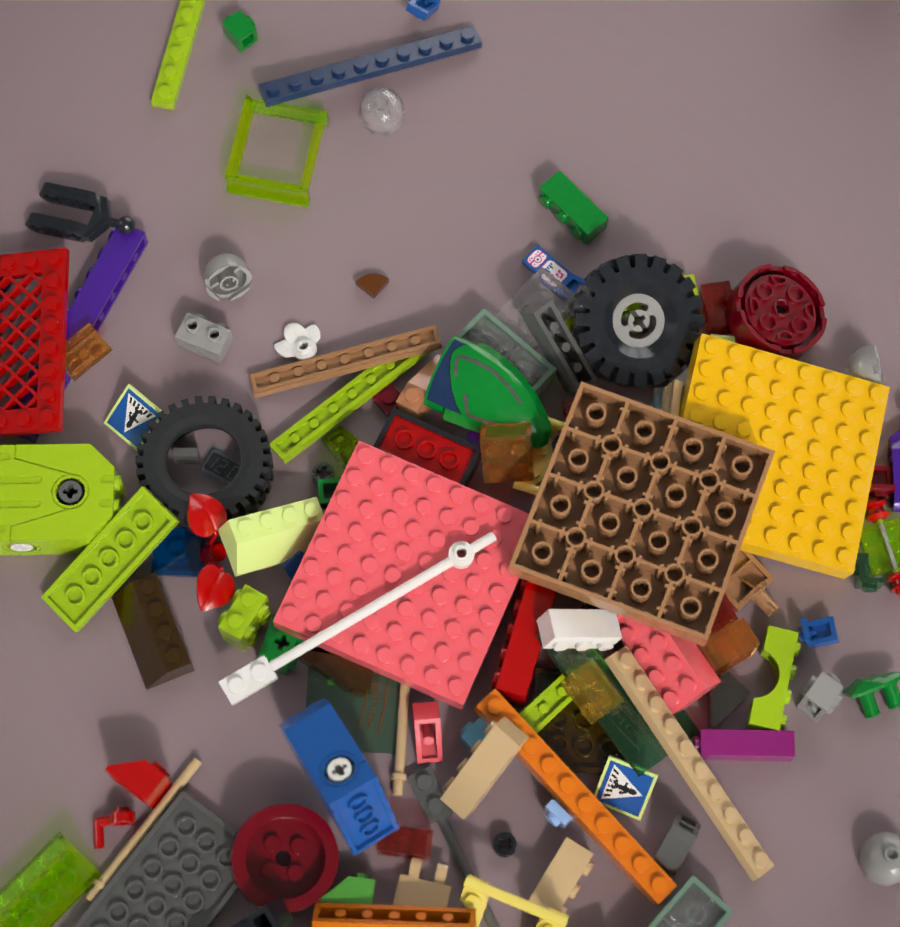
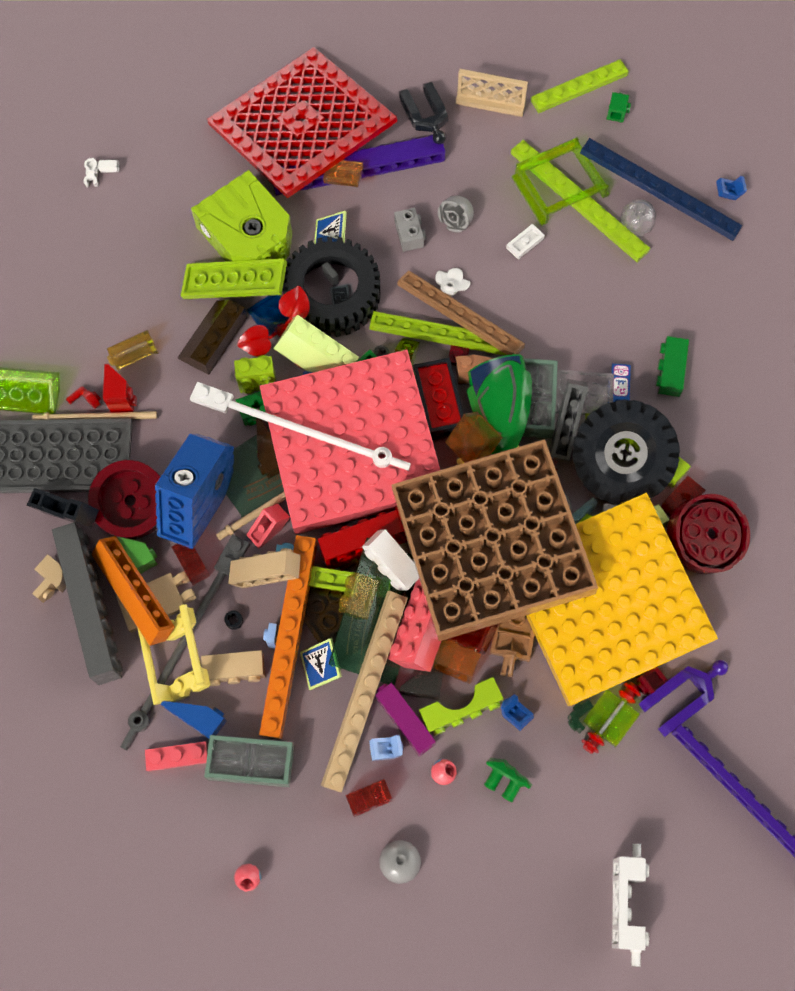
camera: 55 degrees right, 0 degrees up
(98, 732) = (131, 350): none -> clear yellow window
(115, 145) = (489, 99): none -> tan fence
(315, 236) = (525, 241): none -> white plate
(331, 148) = (587, 207): none -> lime plate
(372, 284) = (523, 294): reddish brown tile -> none
(672, 397) = (590, 512): tan tile -> none
(677, 843) = (310, 720): dark grey tile -> none
(762, 785) = (386, 748): none -> light blue bracket
(802, 841) = (369, 798): none -> clear red brick
(820, 696) = (472, 742): light grey brick -> none
(827, 747) = (443, 772): none -> coral piece
(865, 365) = (722, 617): light grey cylinder -> none

